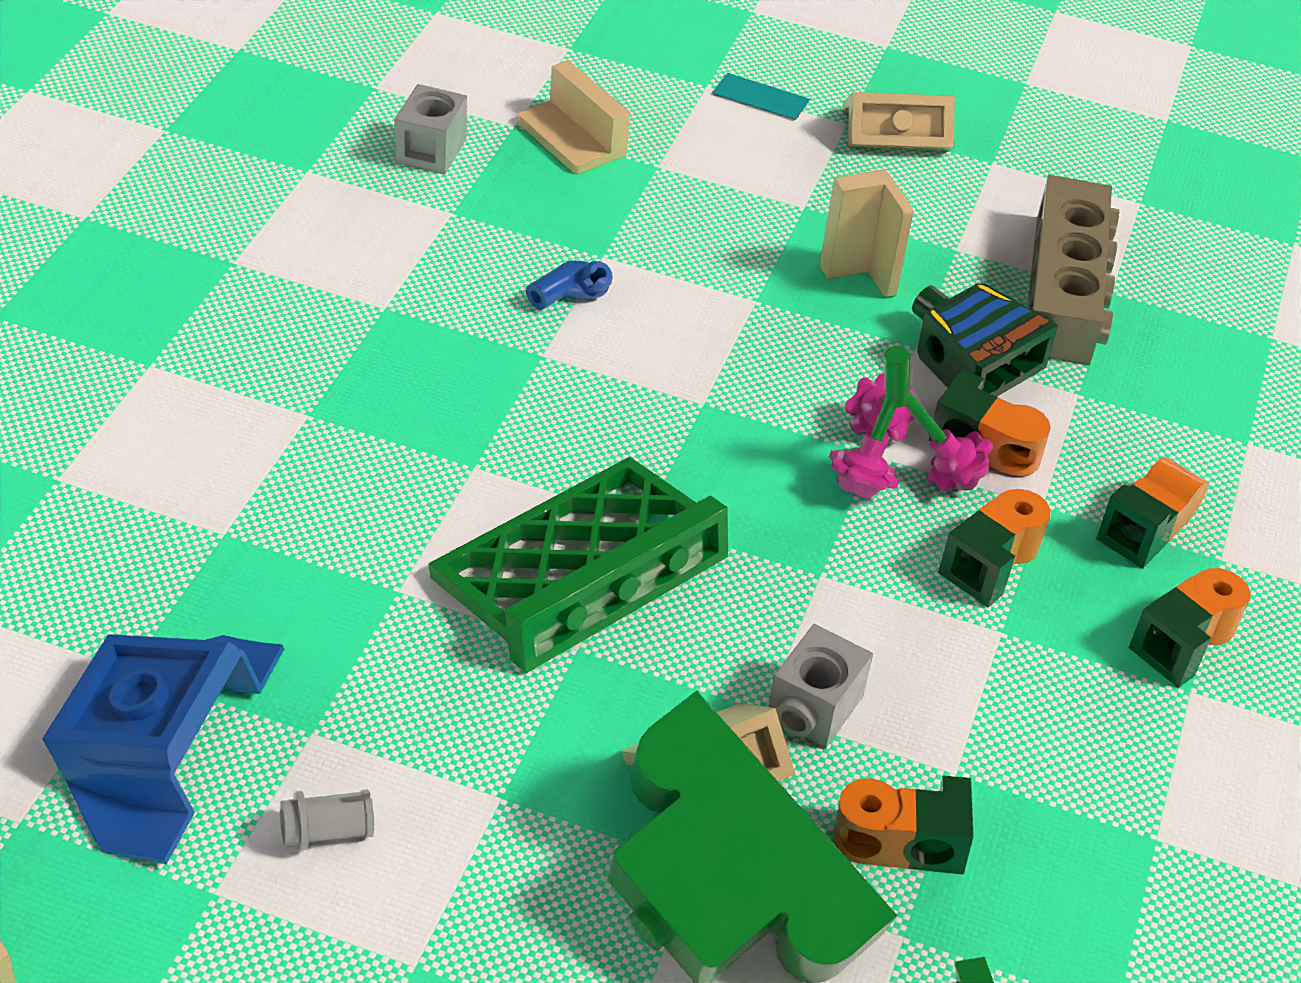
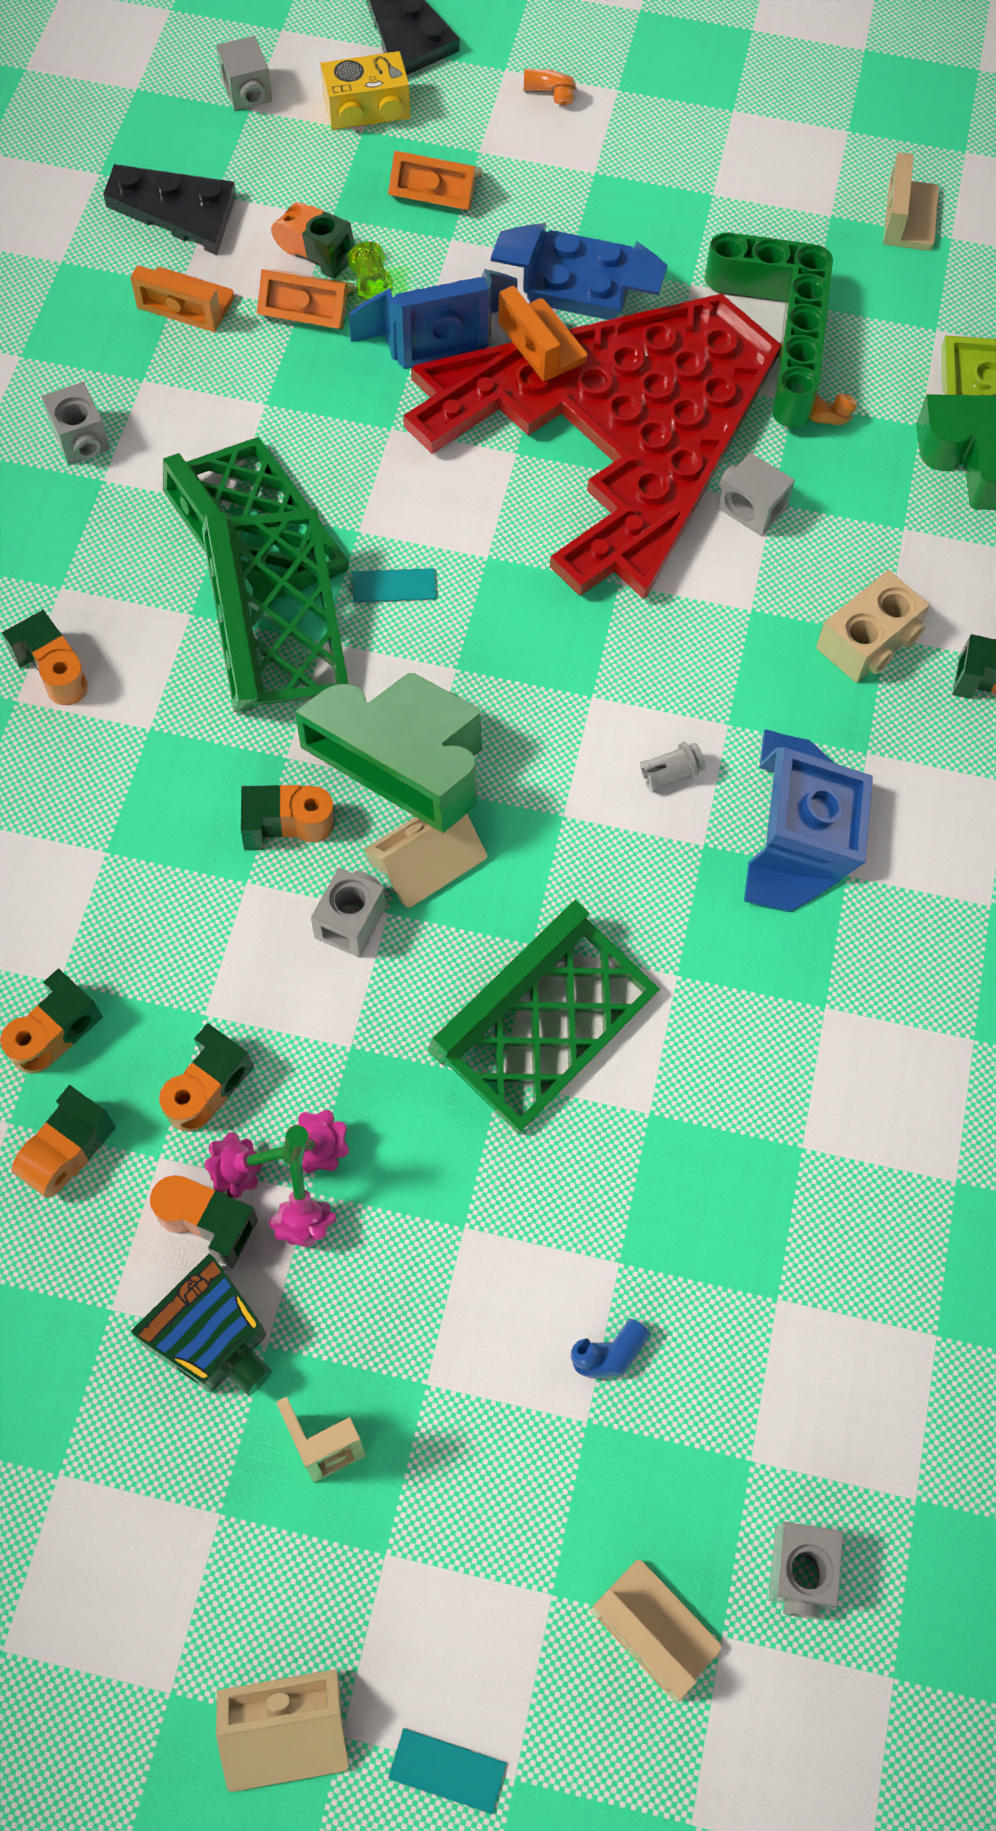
camera: 175 degrees right, 20 degrees up
(1072, 265) = (106, 1563): dark tan brick -> none

